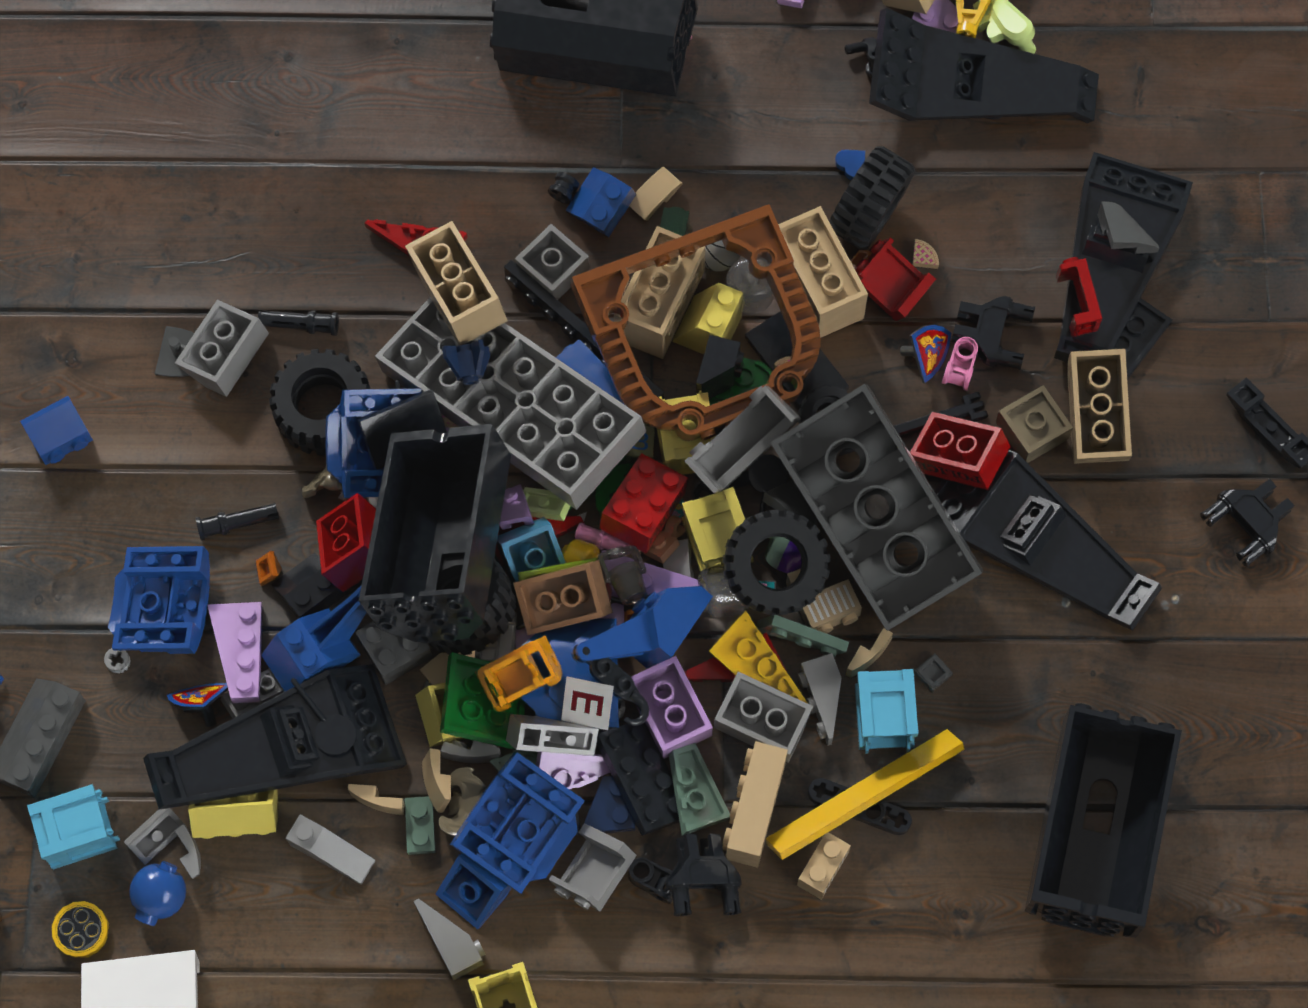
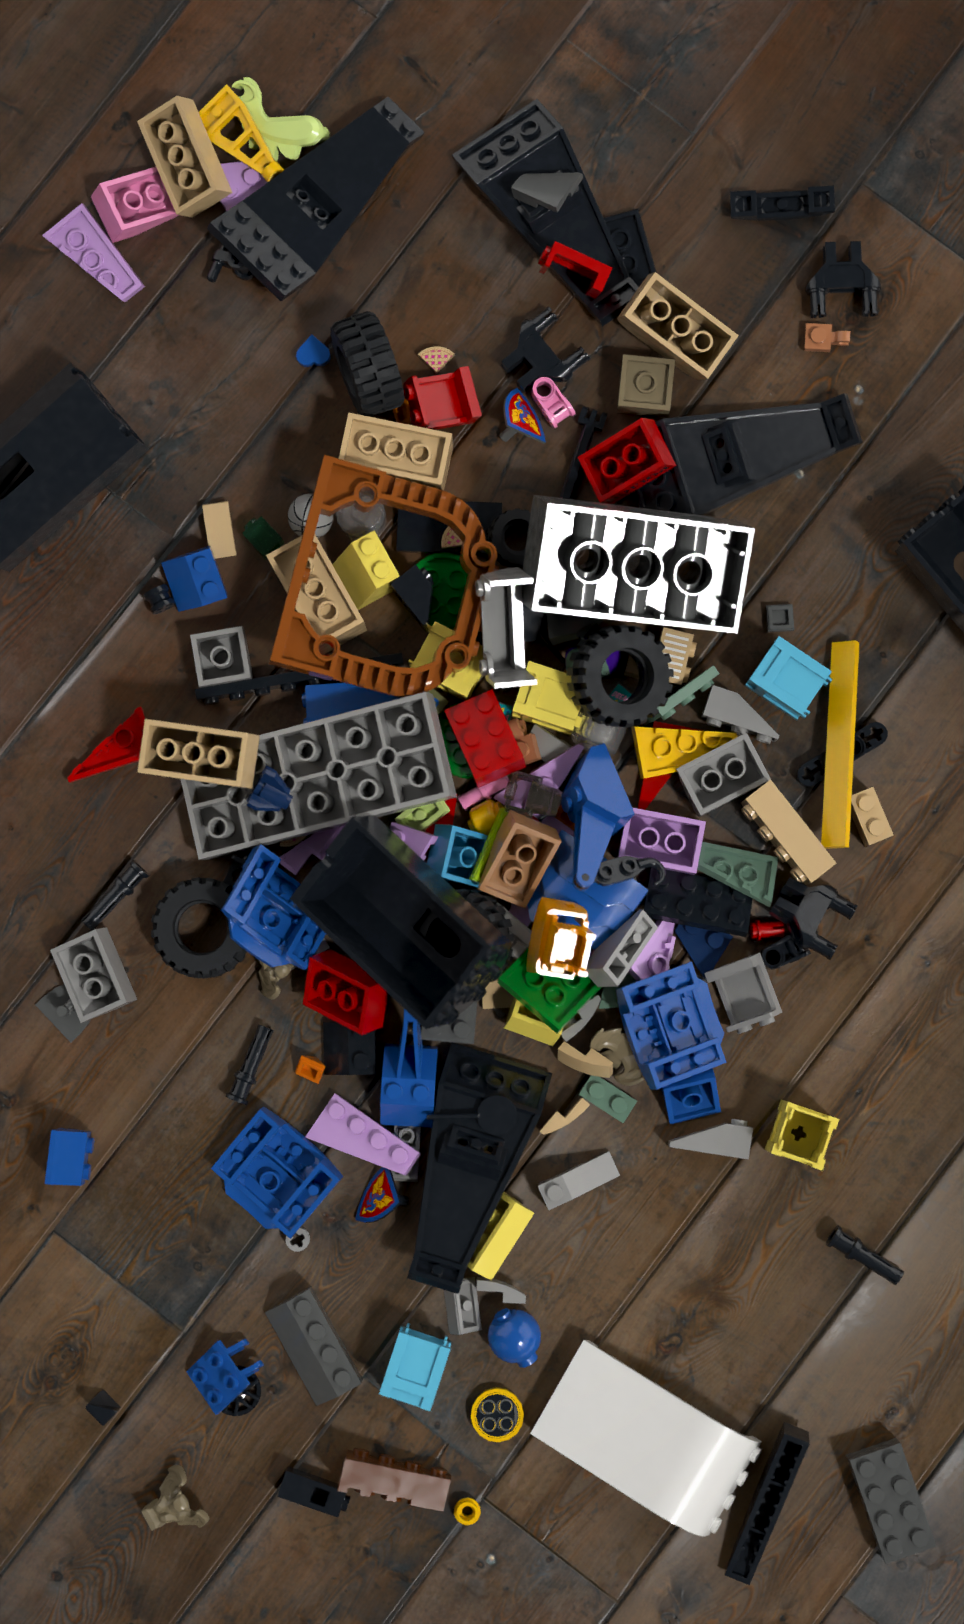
camera: 50 degrees left, 15 degrees up
(409, 415) = (281, 874): black tile -> none
(587, 703) = (619, 904): white sticker -> none
(662, 851) = (766, 929): none -> red pin
(865, 657) = (731, 663): tan slope -> none
(1191, 536) = (820, 337): none -> nougat plate

